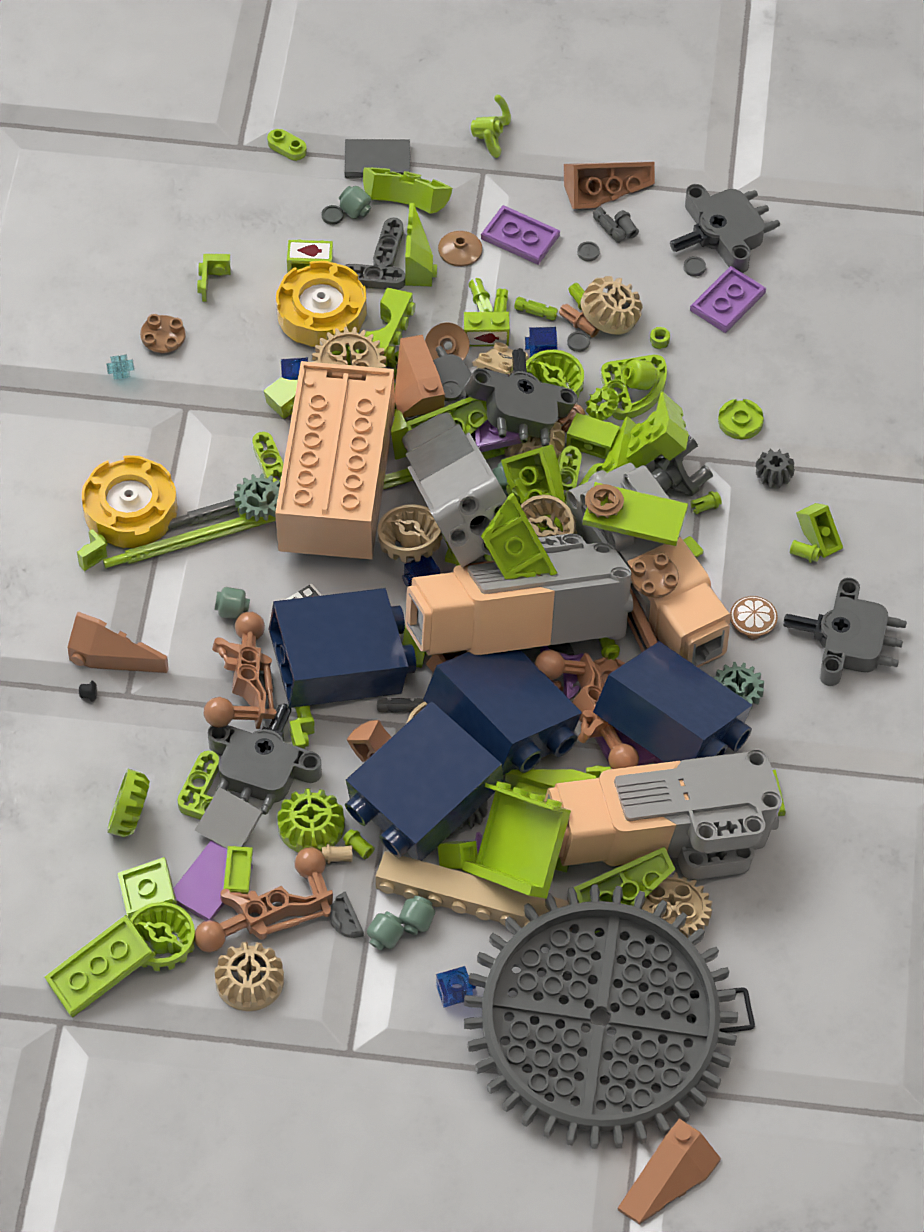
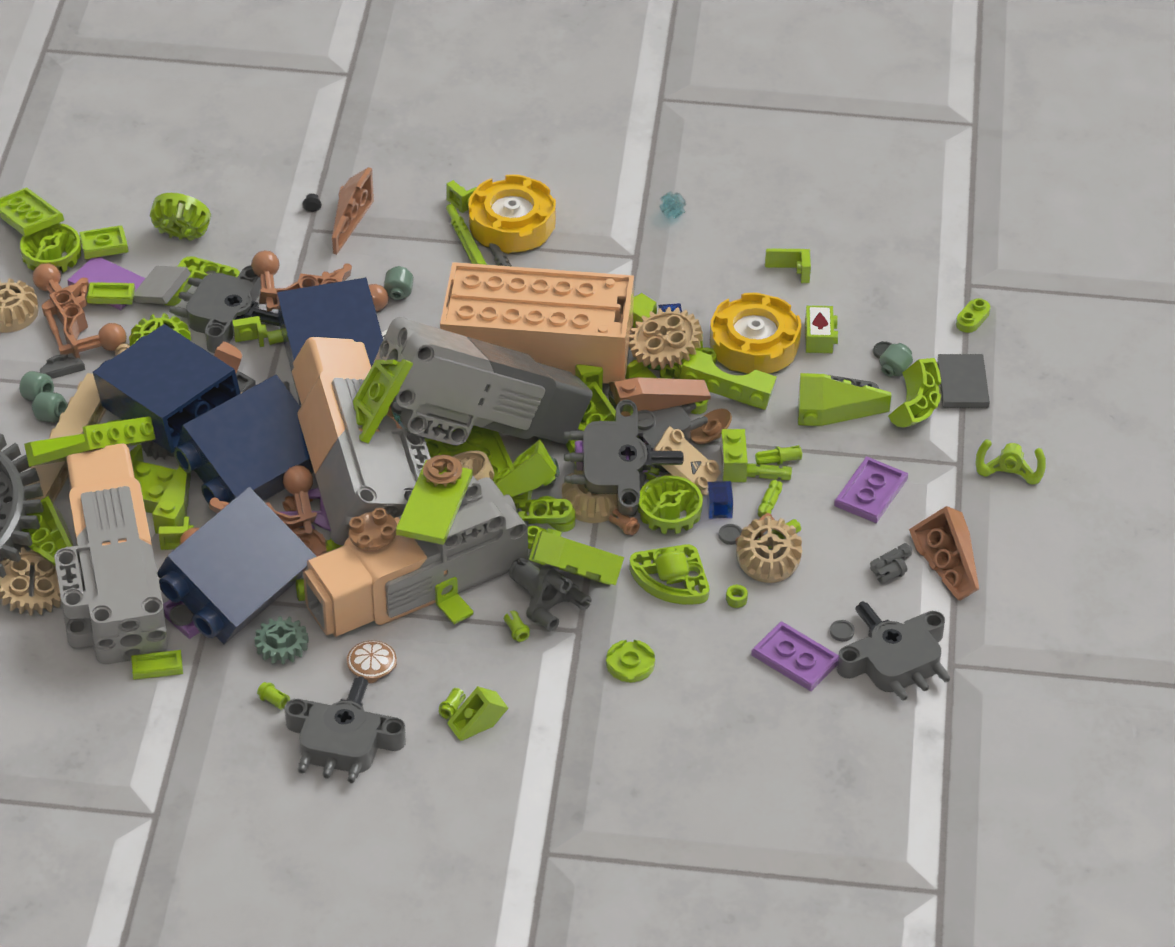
camera: 90 degrees right, 10 degrees down
(162, 333) = (718, 234): medium nougat dish -> none
(389, 272) = (797, 369): dark grey beam -> none
(460, 248) = (849, 445): medium nougat dish -> none
(588, 251) = (855, 544): dark grey piece -> none
(591, 435) = (601, 530): lime brick -> none
(605, 409) = (641, 543): lime gear -> none
(775, 468) = (559, 680): dark grey gear -> none
(804, 693) = (268, 692): none -> lime pin

